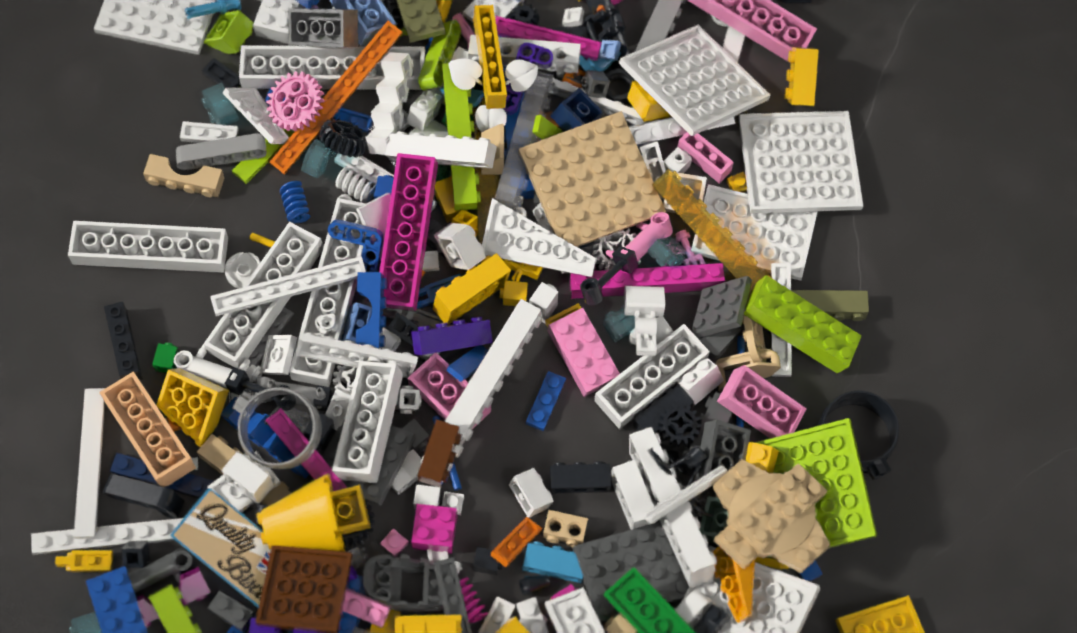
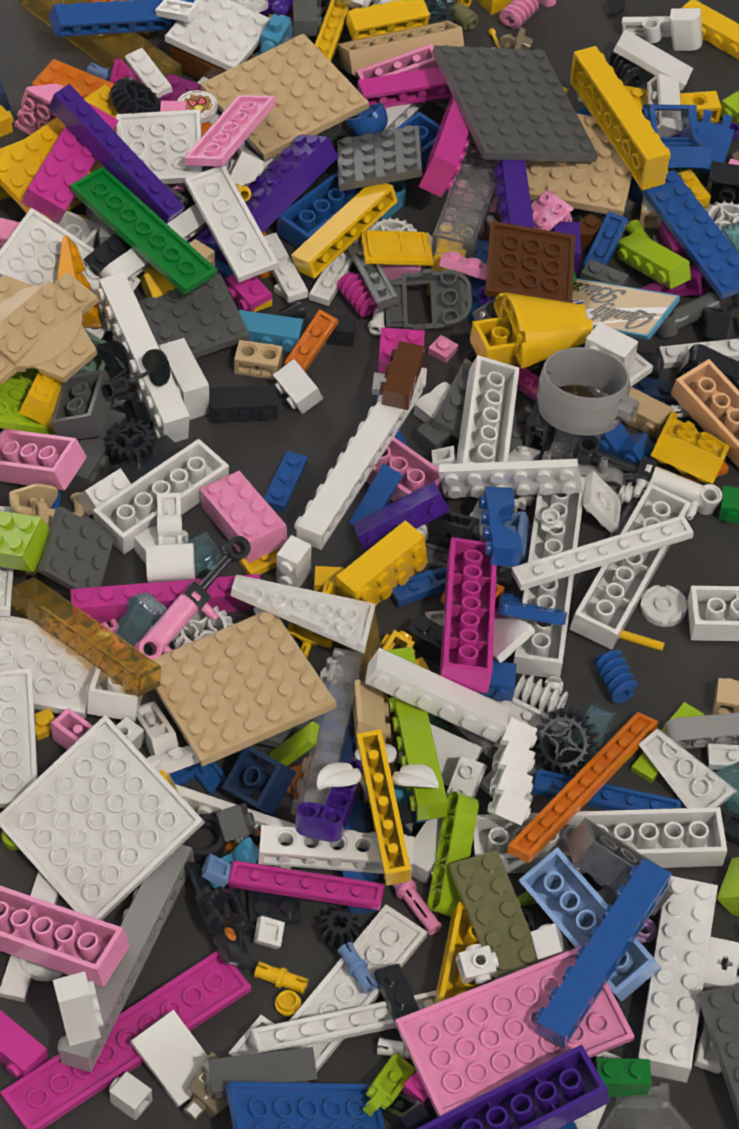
camera: 175 degrees right, 15 degrees down
(295, 101) = (638, 774): bright pink gear -> none
(460, 245) = (401, 601): white brick -> none
(685, 495) = (126, 344): white axle -> none

